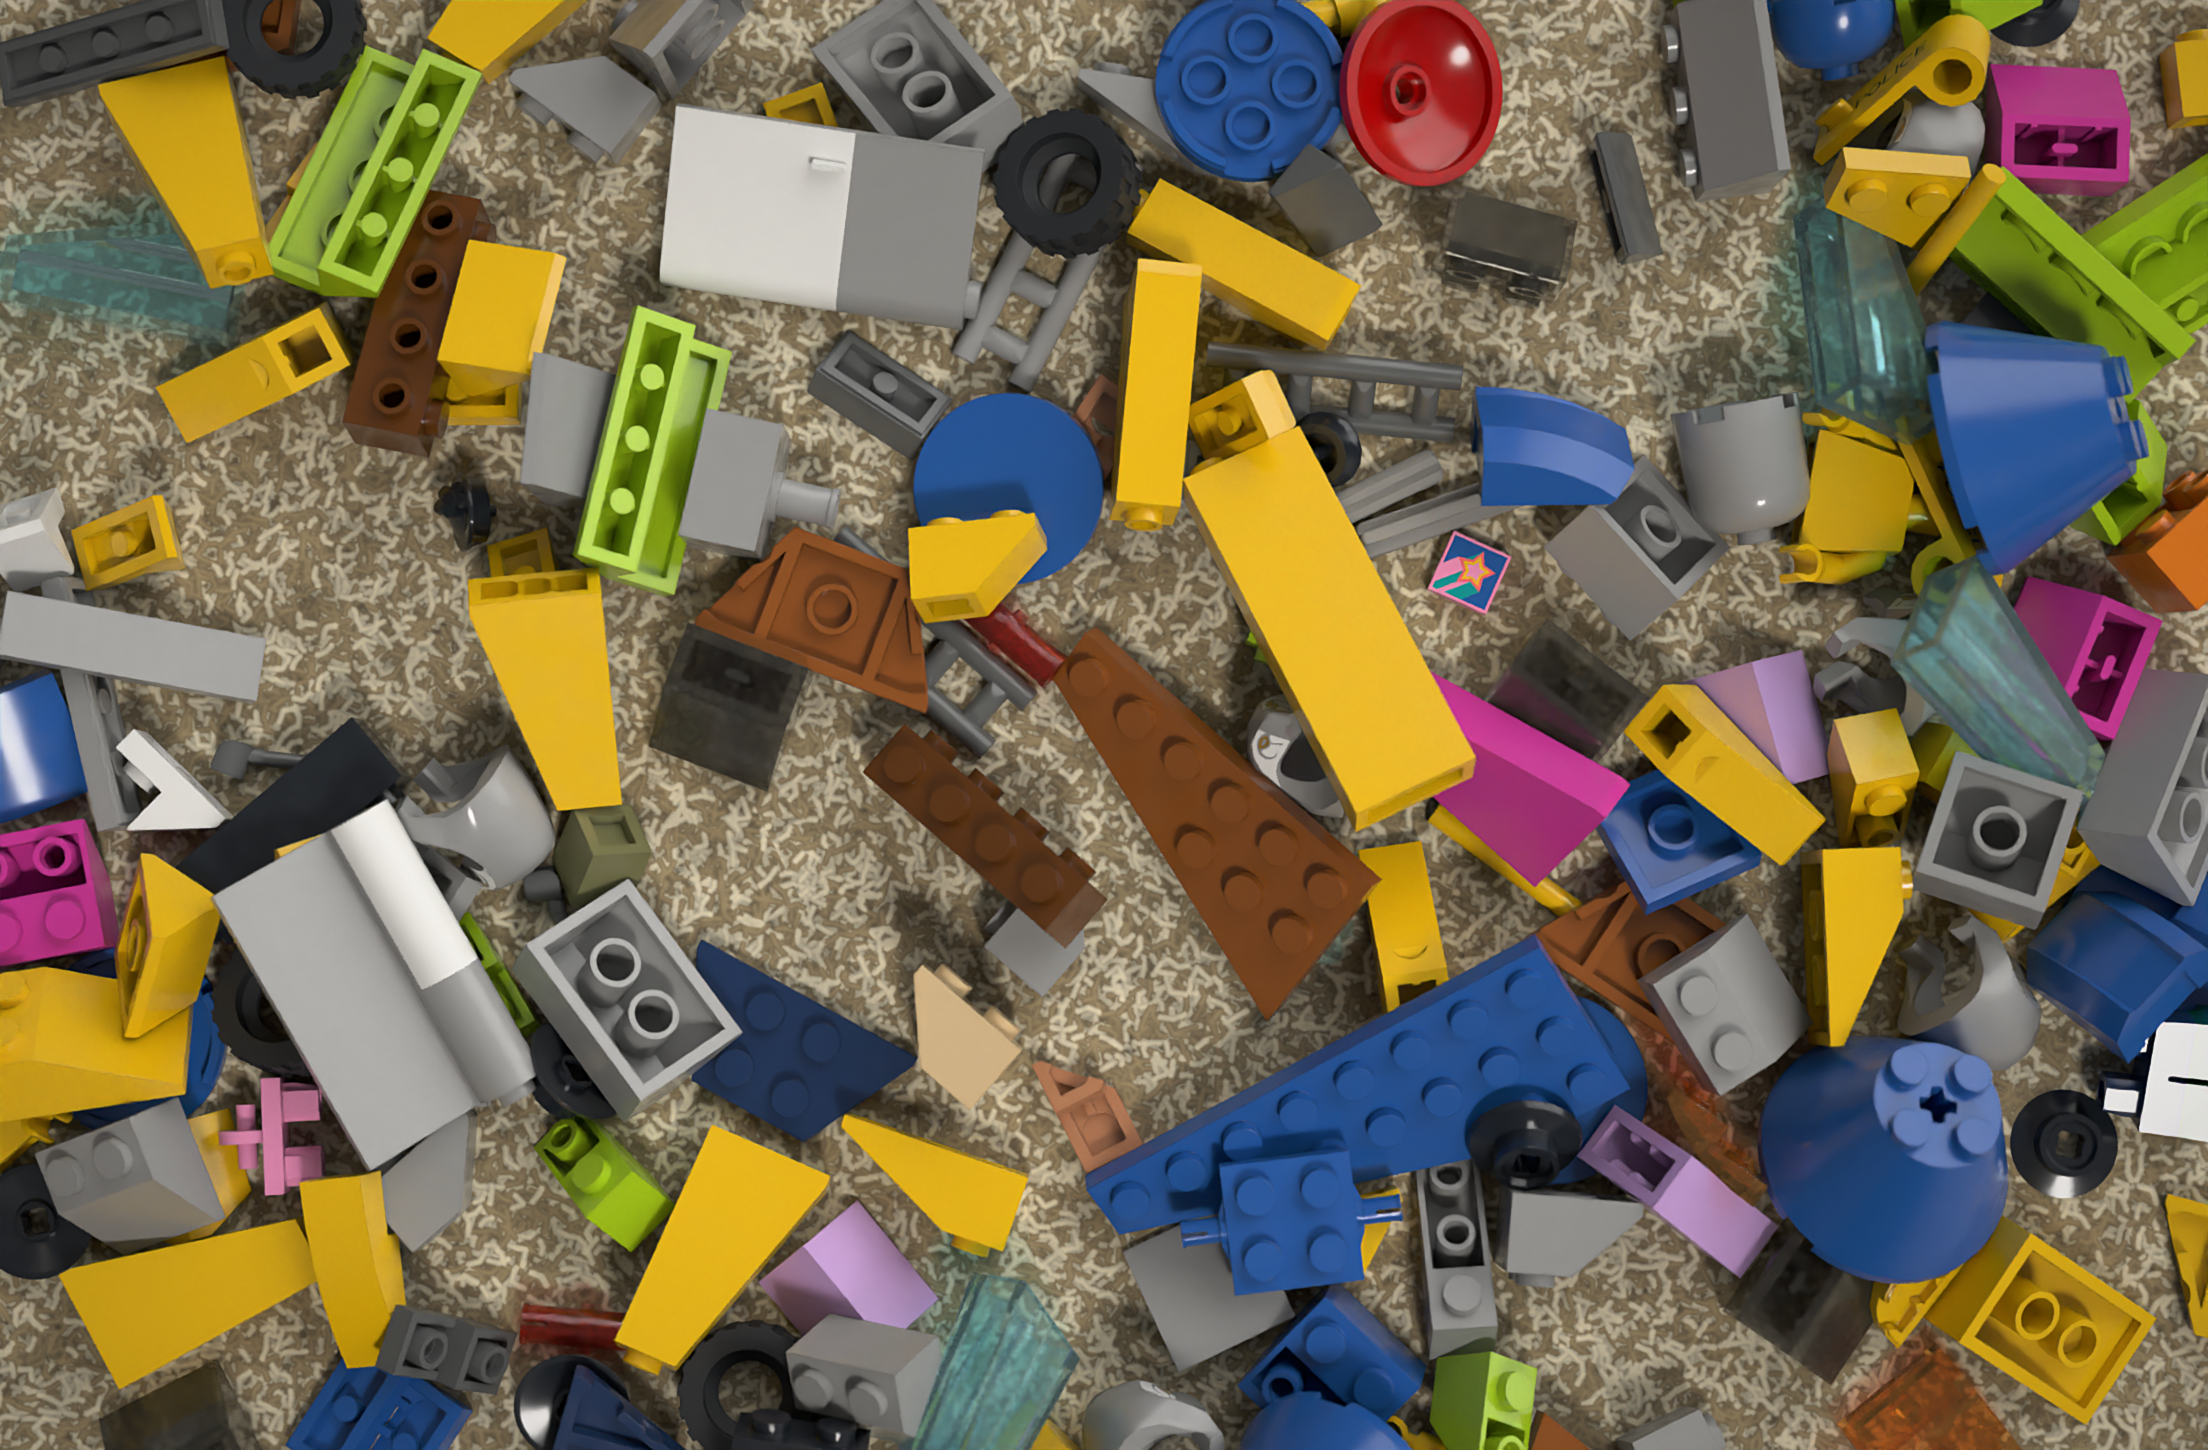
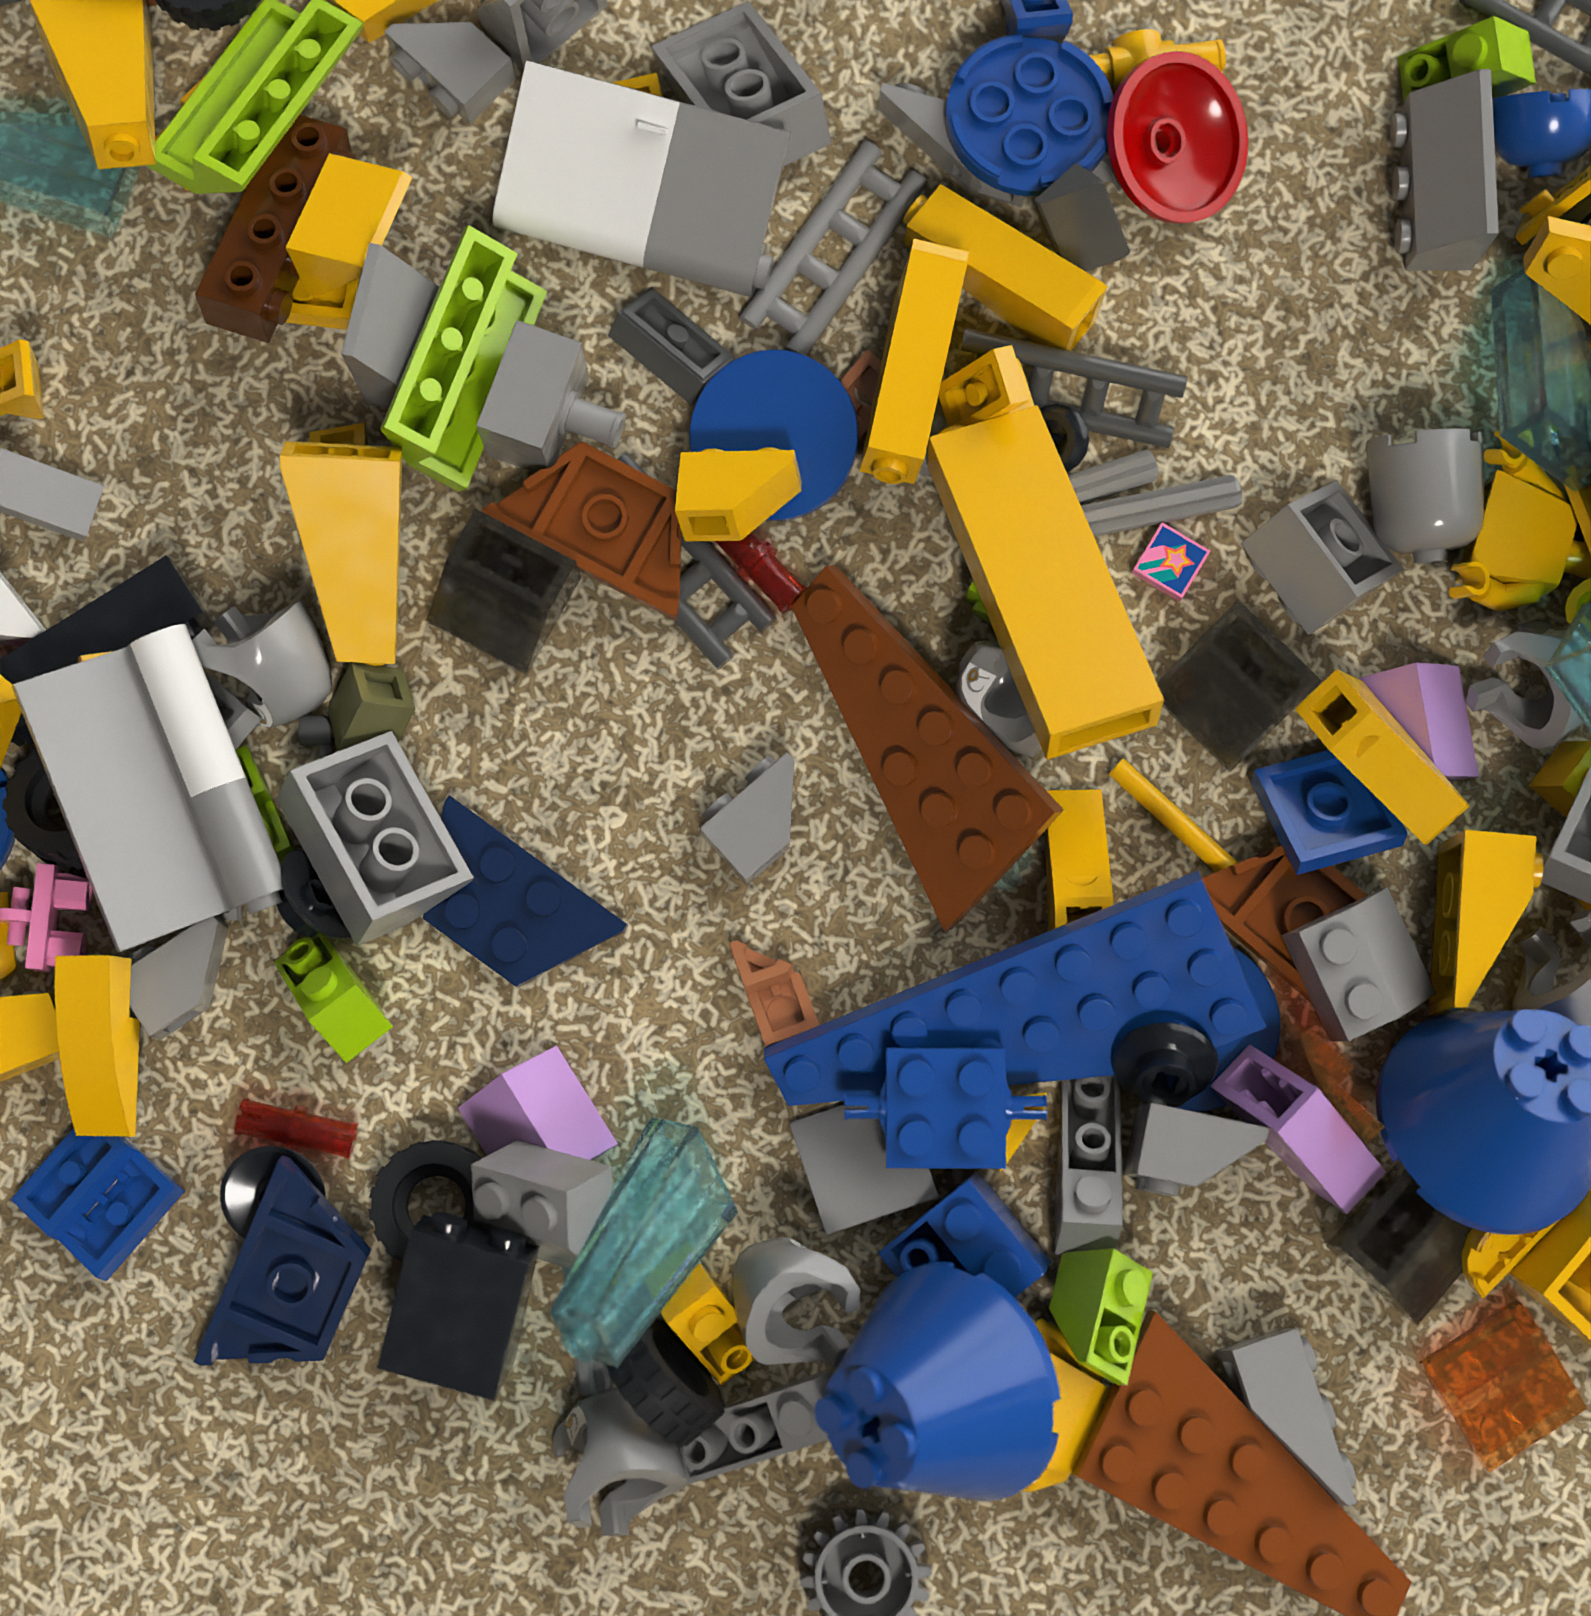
camera: 10 degrees right, 5 degrees down
(234, 758) = (61, 583): dark grey hand -> none
(257, 372) = (131, 254): yellow slope -> none
(445, 1349) = (166, 1129): dark grey slope -> none
(467, 510) = (295, 395): black hat -> none
(719, 1237) = (424, 1063): yellow slope -> none
(953, 1188) = (643, 1042): yellow slope -> none
(957, 1040) = (665, 908): tan slope -> none
(985, 836) = (714, 729): reddish brown brick -> none
(1034, 149) = (835, 148): black tyre -> none
(1503, 249) = (1233, 284): clear smoke slope -> none
(1527, 790) = (1201, 752): dark pink slope -> none
(1545, 450) = (1251, 455): blue slope -> none
(1624, 197) = (1342, 256): dark grey slope -> none
(1871, 778) = (1512, 776): yellow slope -> none

